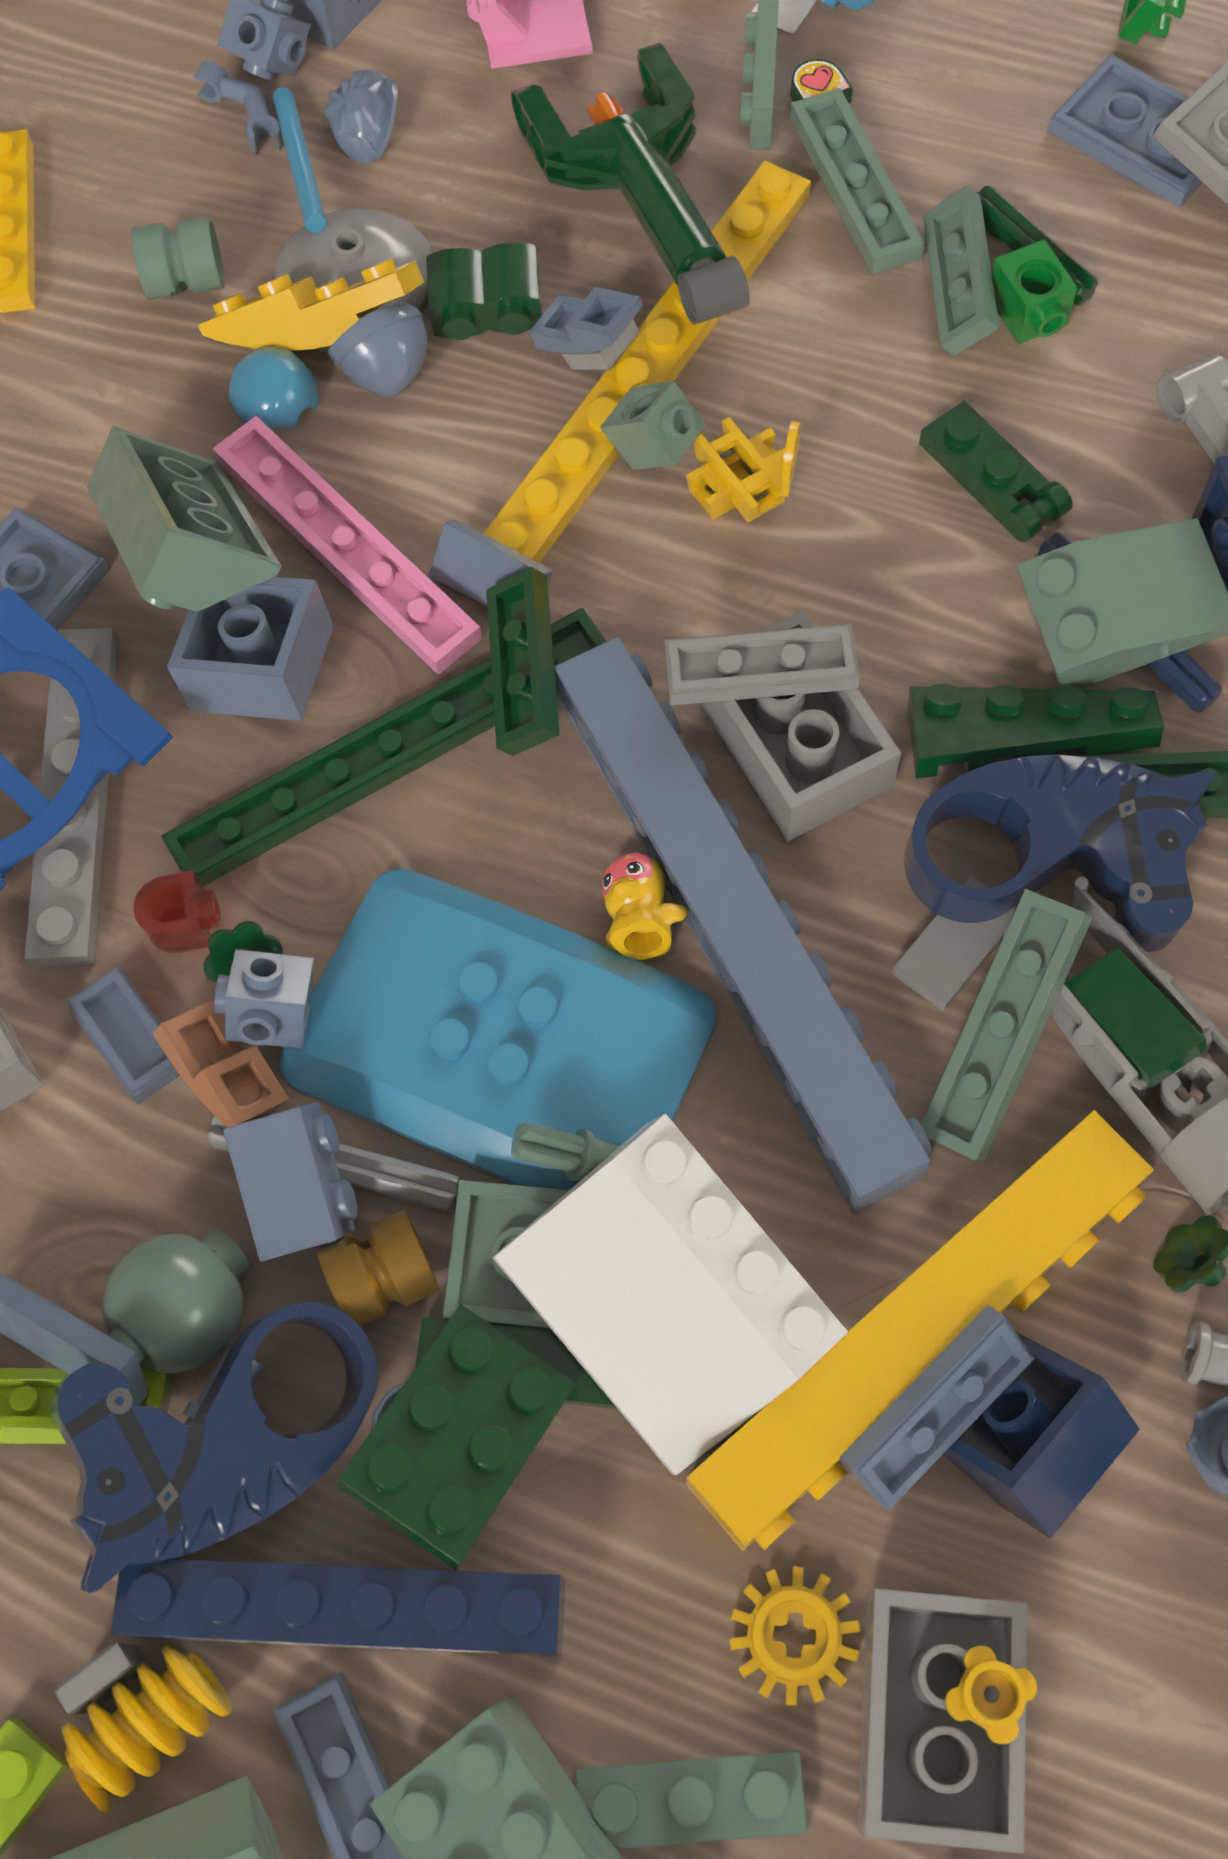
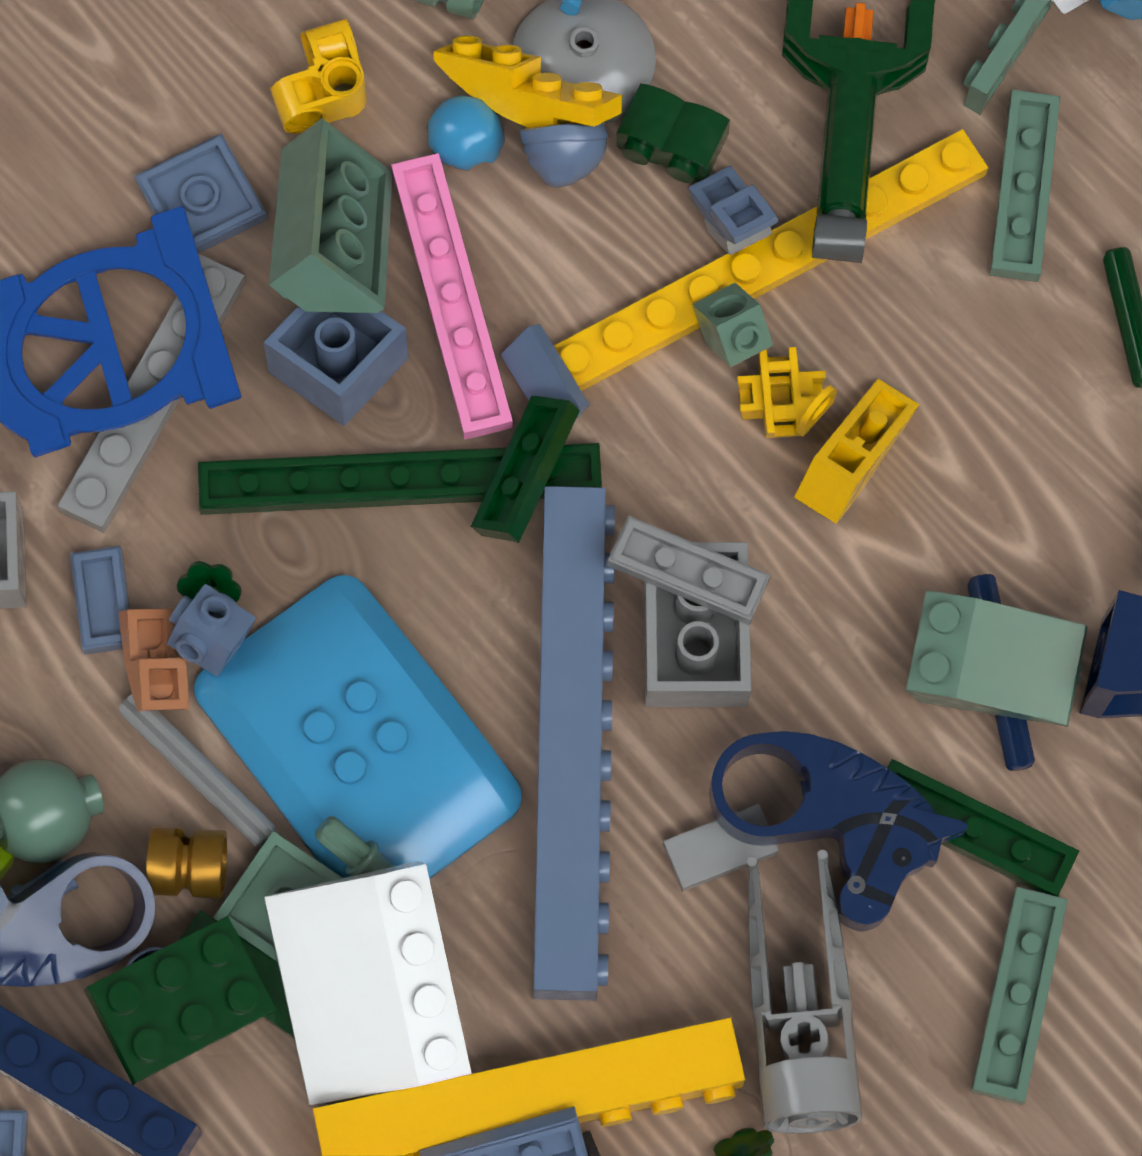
camera: 20 degrees right, 5 degrees up
(98, 395) = (310, 93): none -> yellow piece
(177, 912) = (180, 530): clear red plate -> none
(291, 1180) = (160, 770): sand blue brick -> none
(634, 899) = (507, 693): yellow animal -> none
(818, 77) = (1051, 76): tile -> none
(849, 489) = (855, 451): none -> yellow slope
(961, 271) = (1056, 312): sand green plate -> none
(994, 472) = (978, 495): dark green plate -> none
(1005, 1025) = (705, 926): sand green plate -> none
(1008, 721) = (849, 701): dark green wing -> none
(1032, 292) = (1104, 343): green brick -> none
(1137, 1017) = (794, 969): dark green tile -> none

